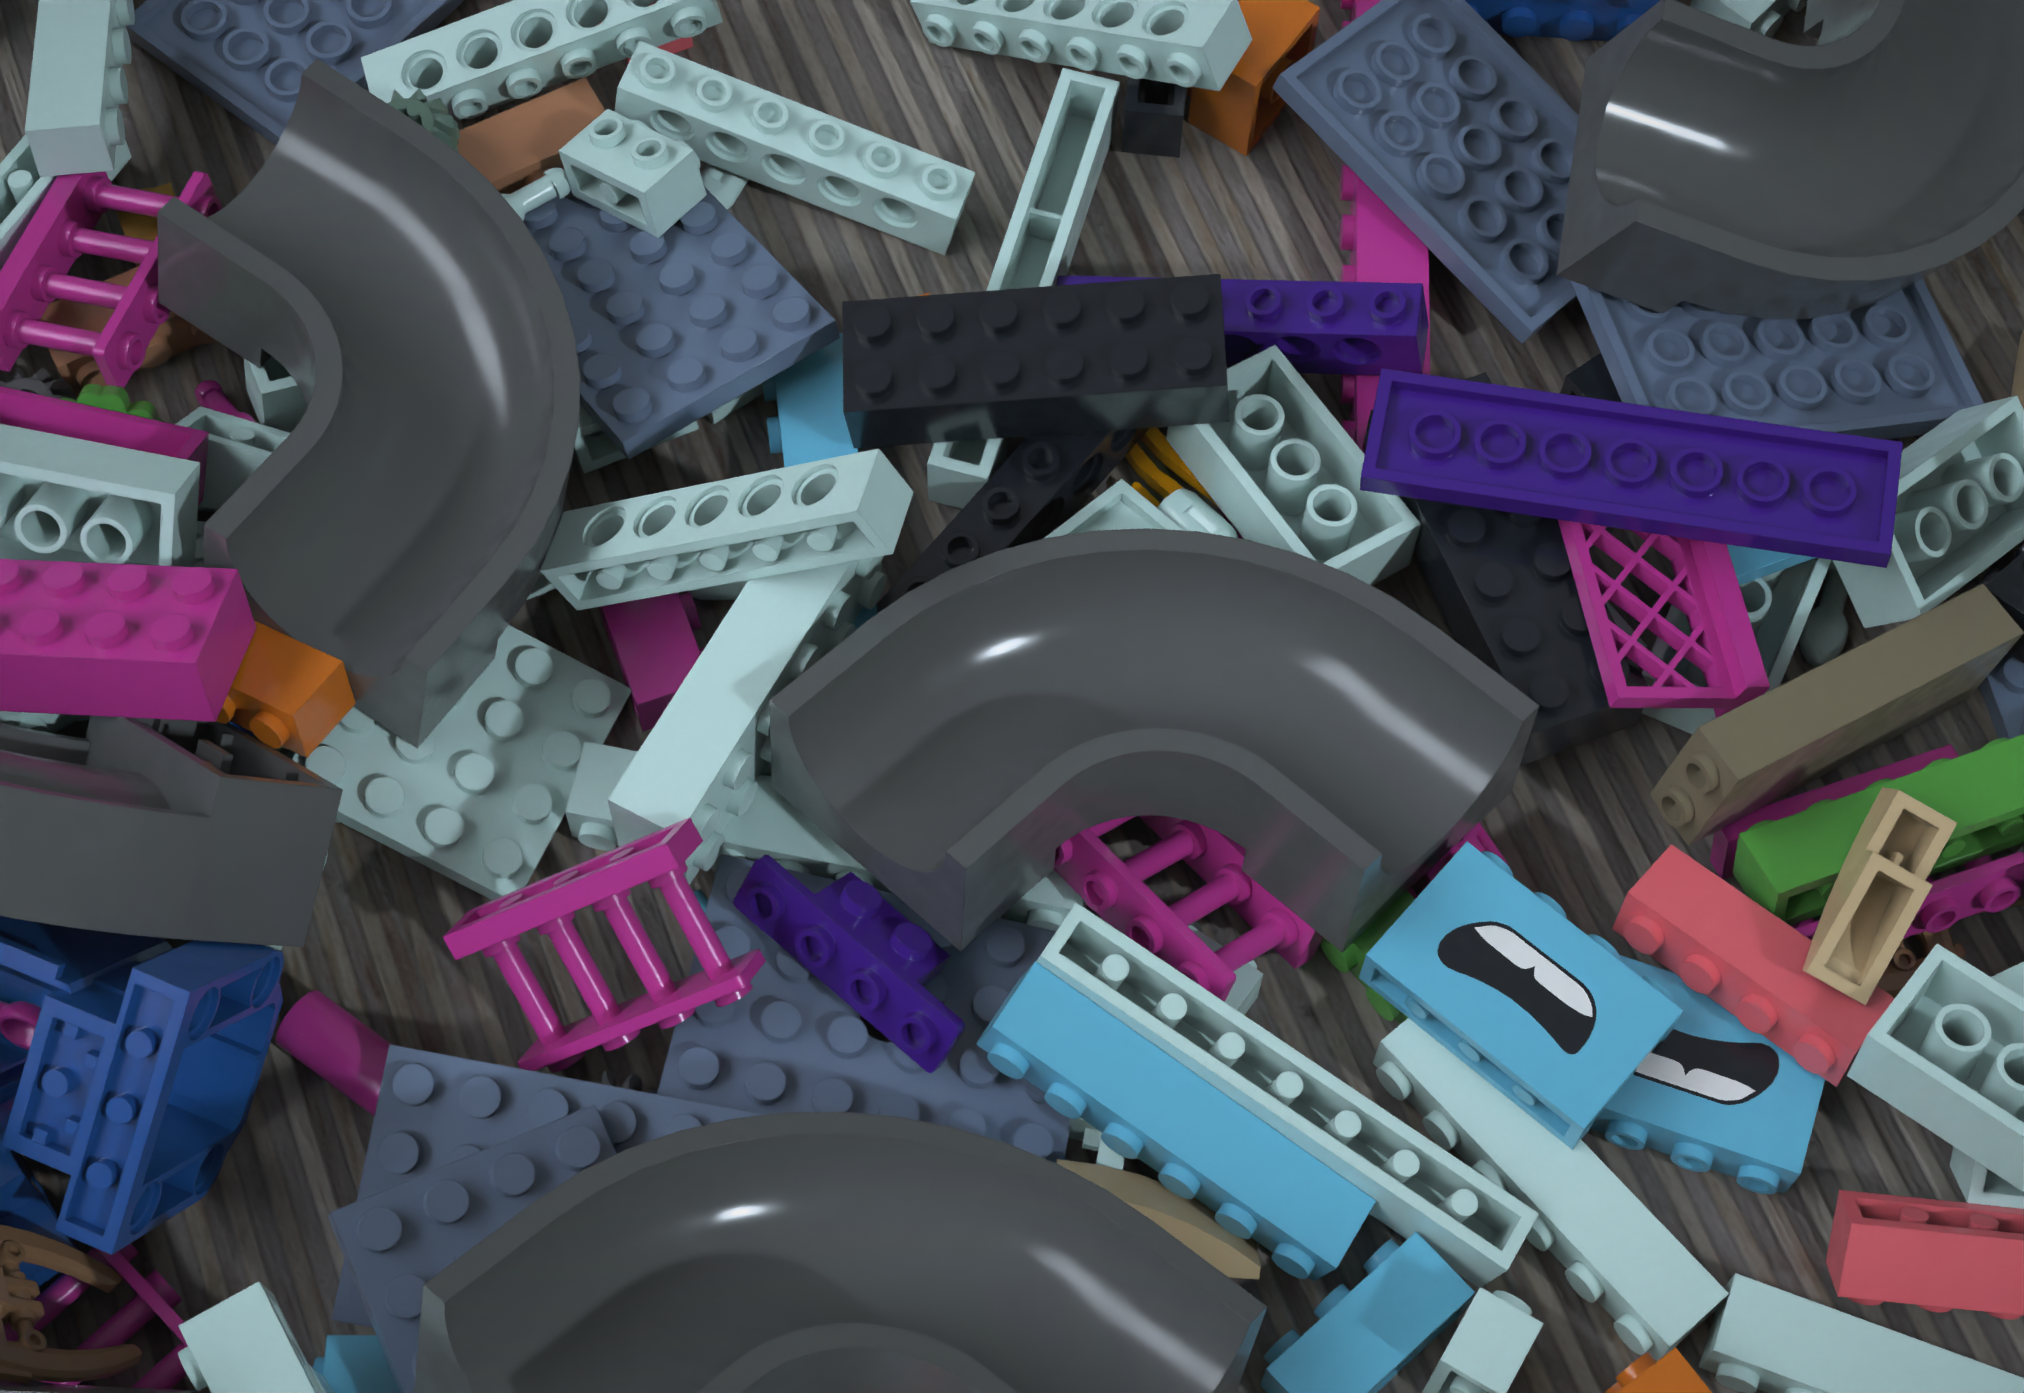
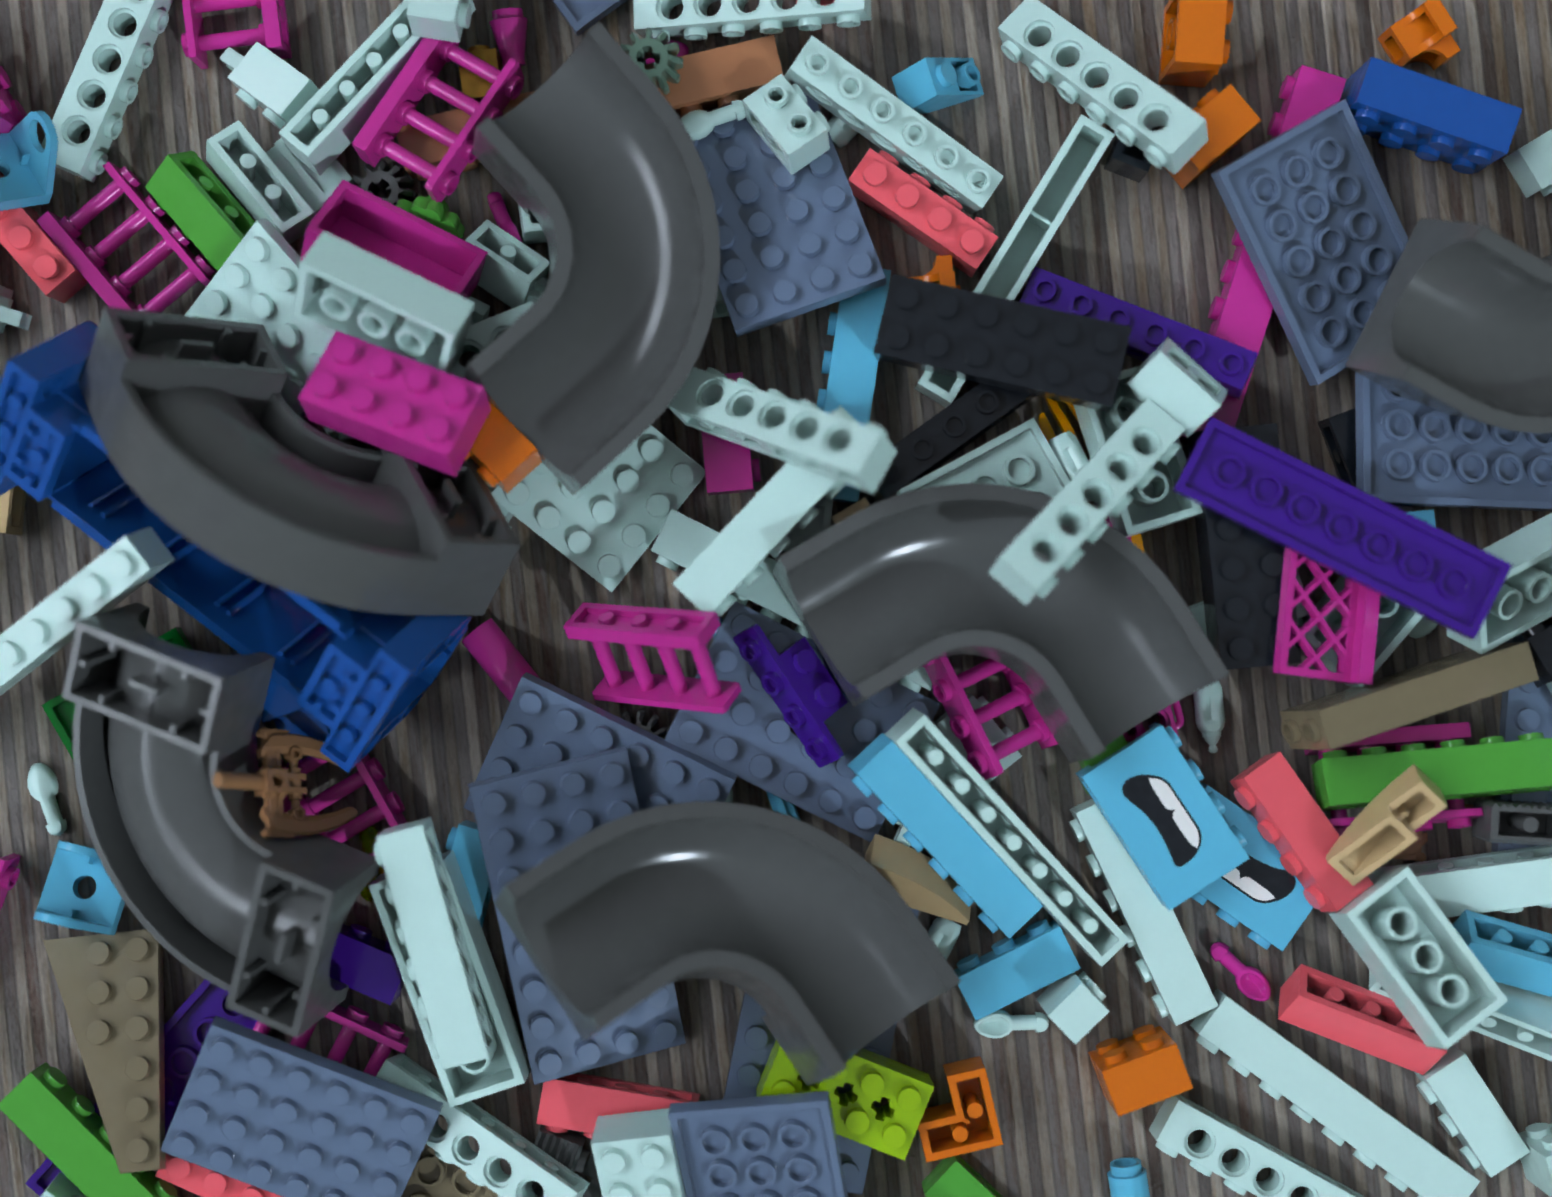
camera: 15 degrees right, 25 degrees up
(181, 155) = (510, 33): none -> dark pink cone
(850, 86) = (938, 83): none -> medium azure slope
(860, 252) = (921, 212): none -> coral brick
(1229, 516) = (1018, 565): none -> light aqua brick
(1317, 353) = (1178, 386): none -> light aqua brick
(1544, 846) = (1210, 713): none -> light aqua piece
(1765, 1253) = (1247, 978): none -> dark pink piece

